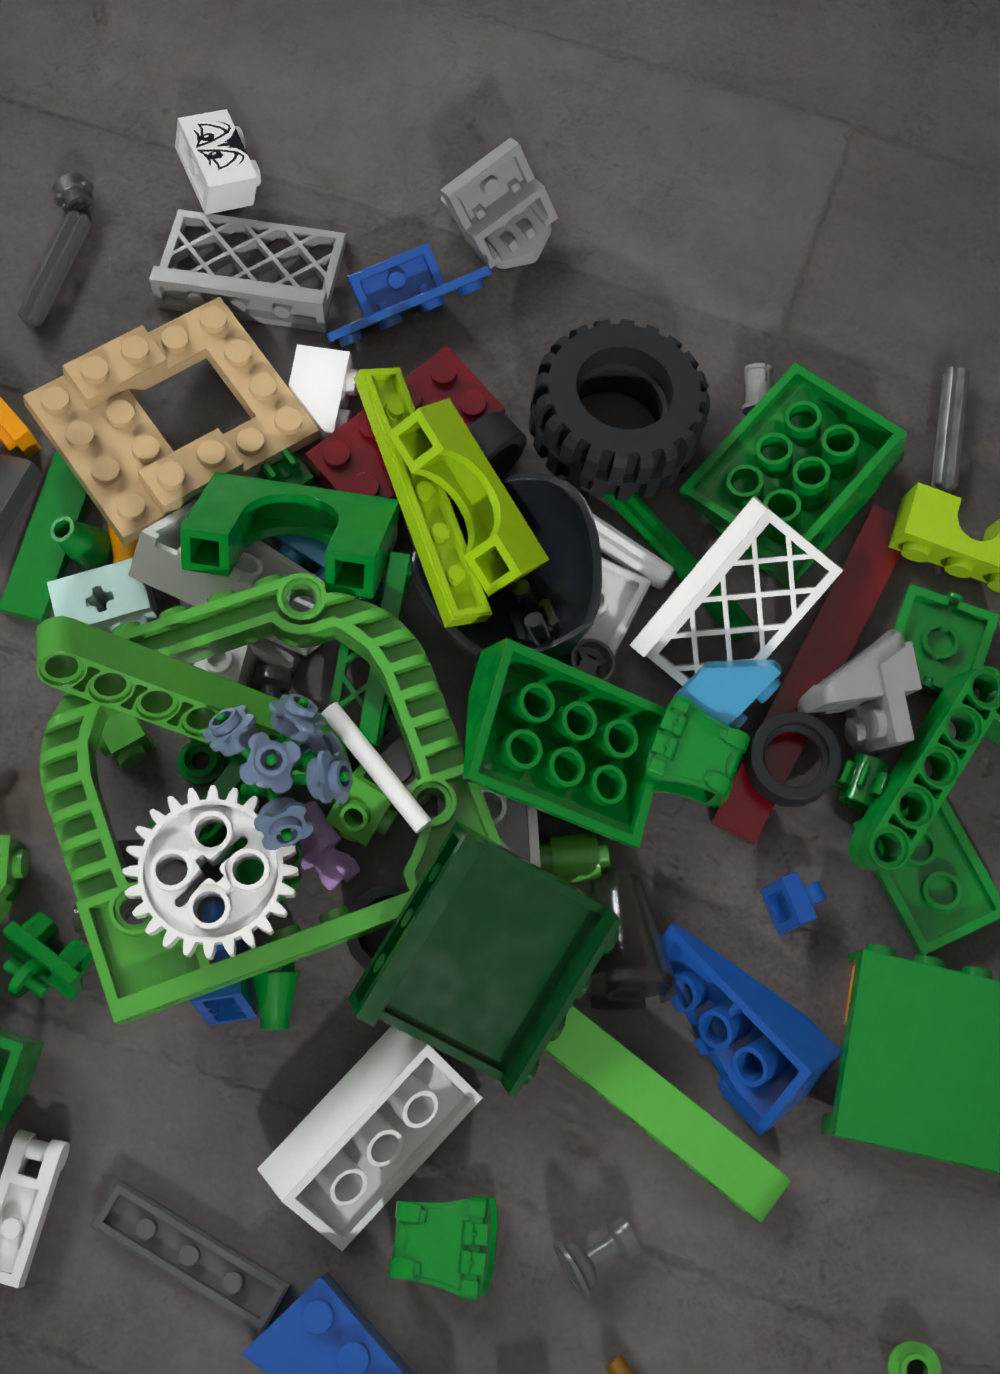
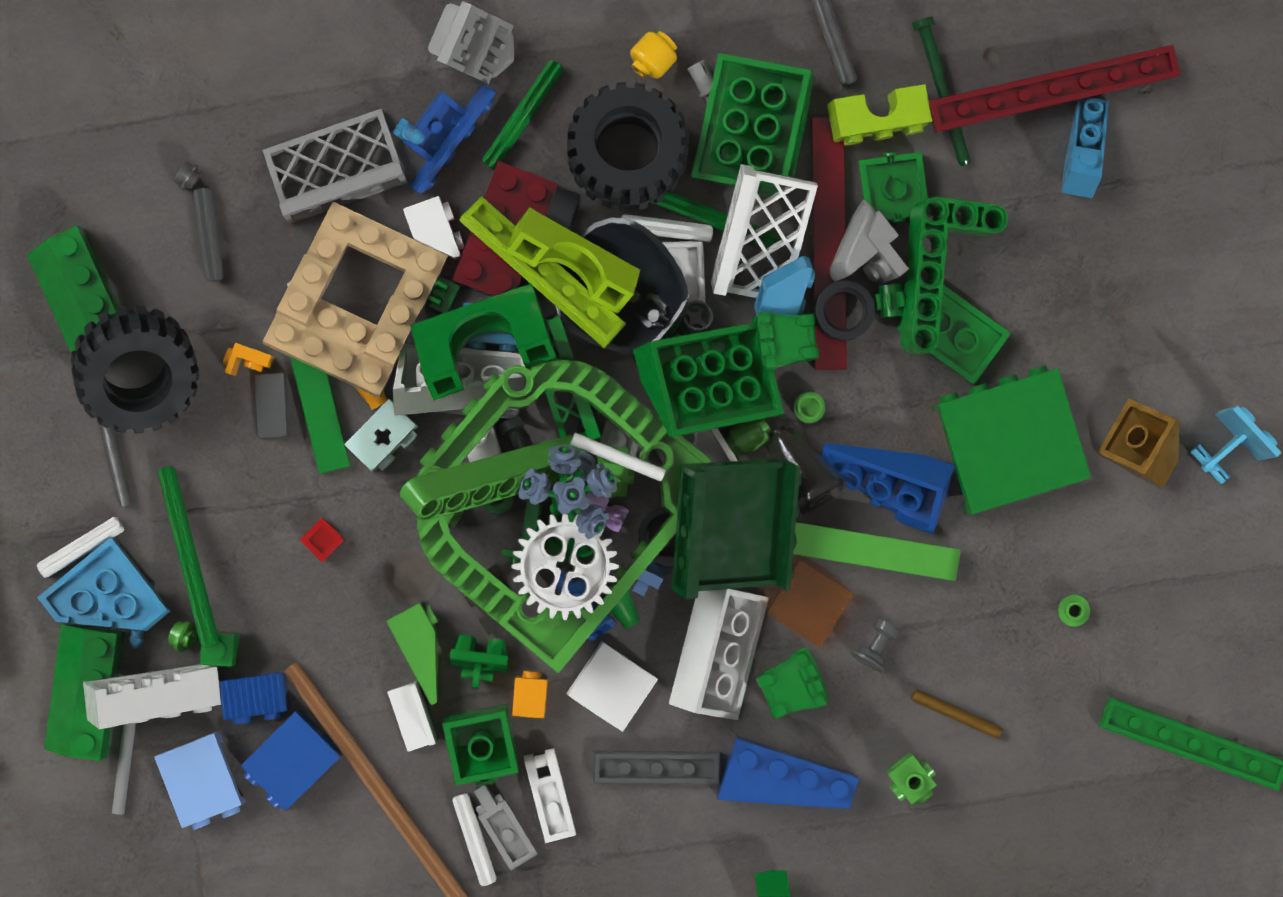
camera: 30 degrees left, 15 degrees up
(79, 1048) = (530, 695): none -> light orange brick
(84, 544) = (348, 406): green cone -> none
(197, 1100) = (612, 686): none -> white slope
(217, 161) = (270, 105): white brick -> none
(334, 971) = (652, 576): none -> medium blue tile
(358, 264) = (406, 131): none -> dark azure piece
(516, 320) = (523, 114): none -> green axle
(535, 1140) = (811, 604): none -> clear orange tile
(678, 866) = (809, 407): none -> bright green plate
(711, 330) = (653, 55): none -> yellow head
(791, 902) = (885, 394): blue tile -> none

